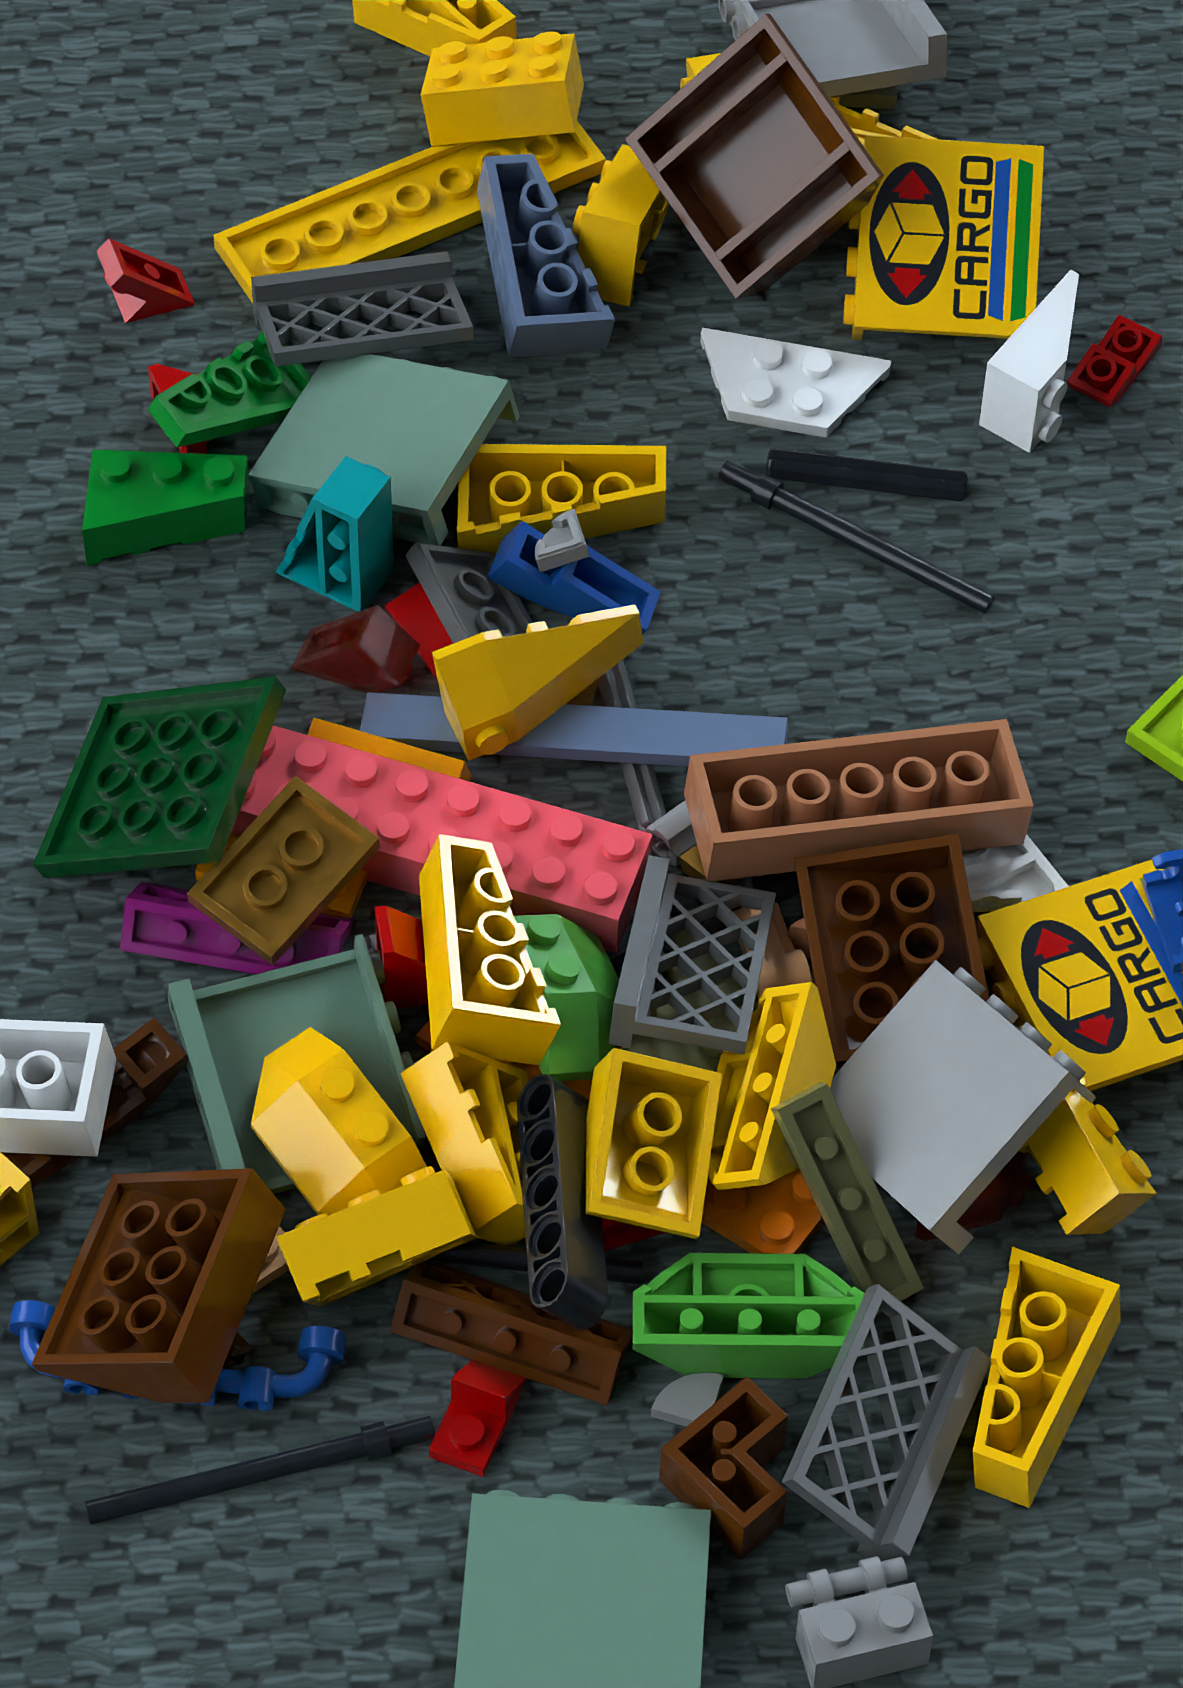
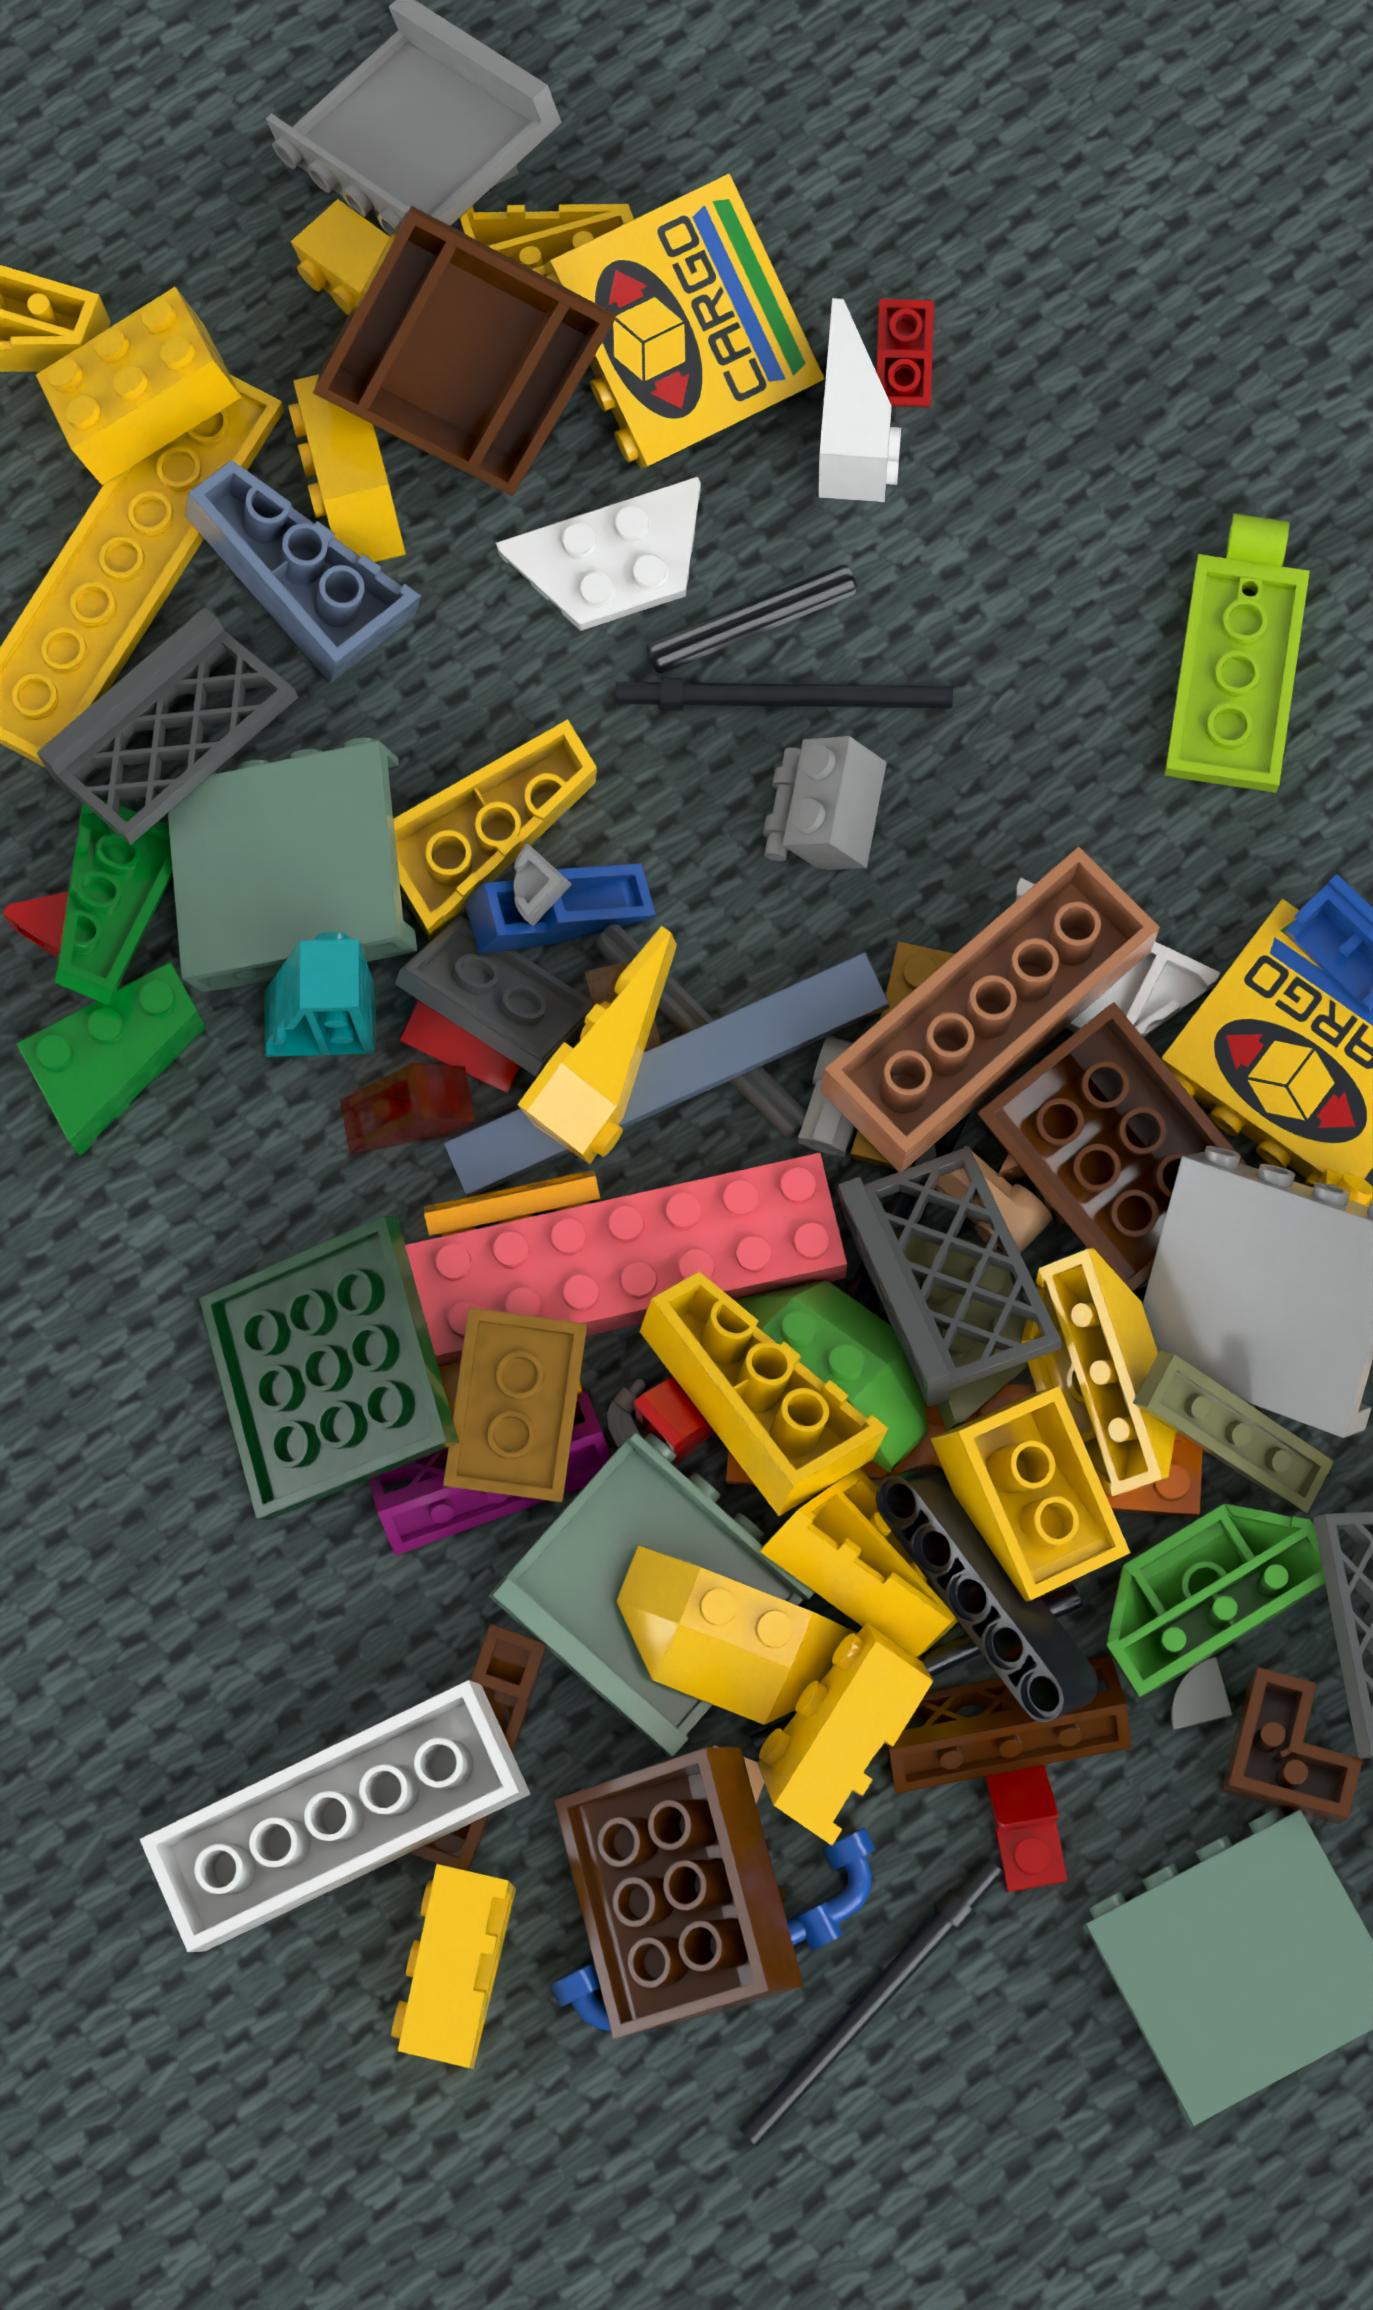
camera: 25 degrees left, 20 degrees up
(835, 617) = (825, 803): none -> light grey brick

